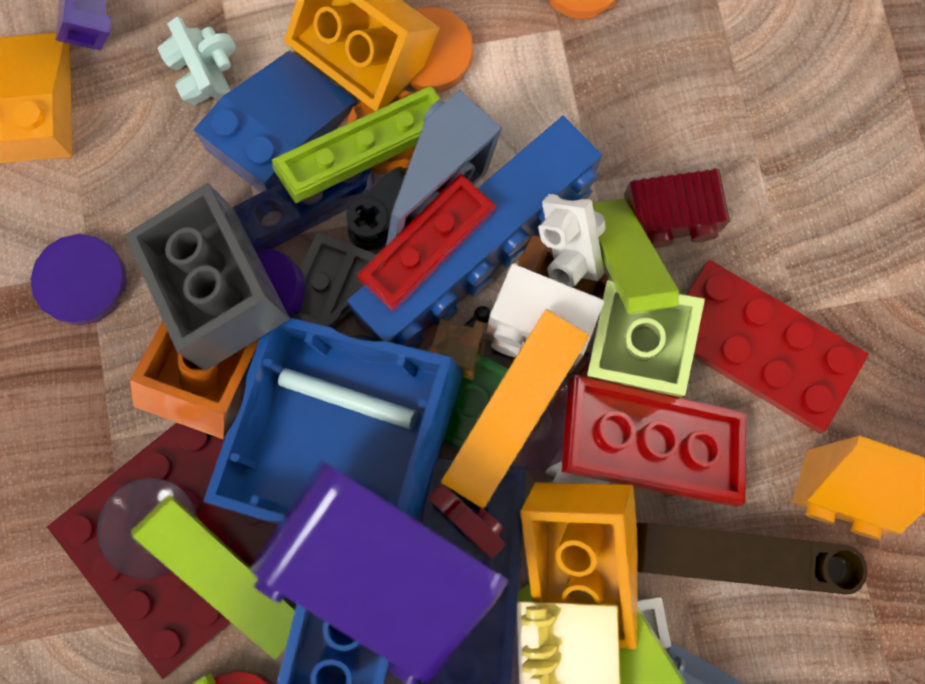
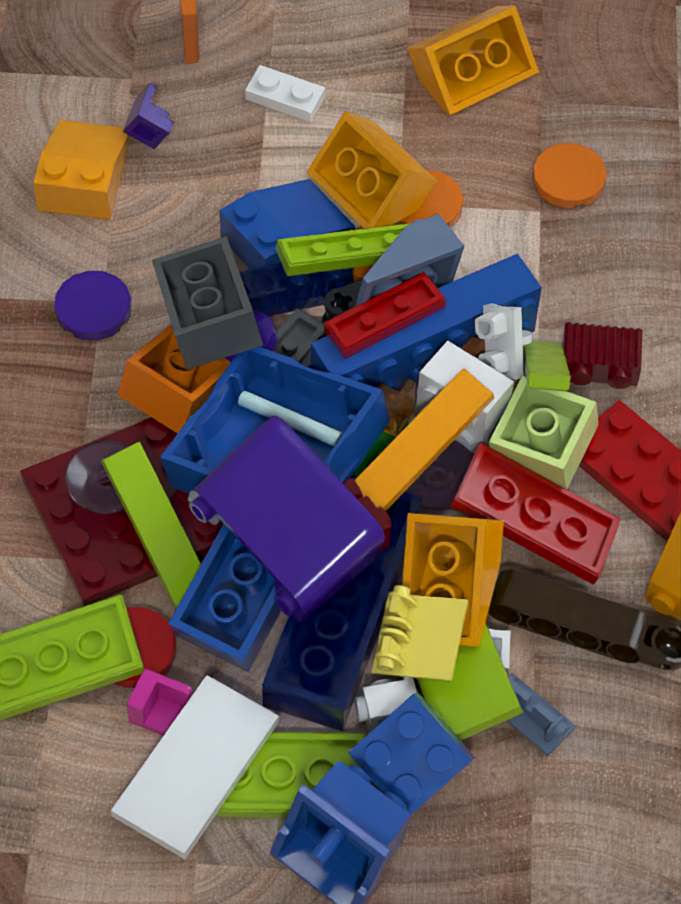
camera: 15 degrees right, 20 degrees down
(204, 55) = (238, 166): light aqua hips -> none

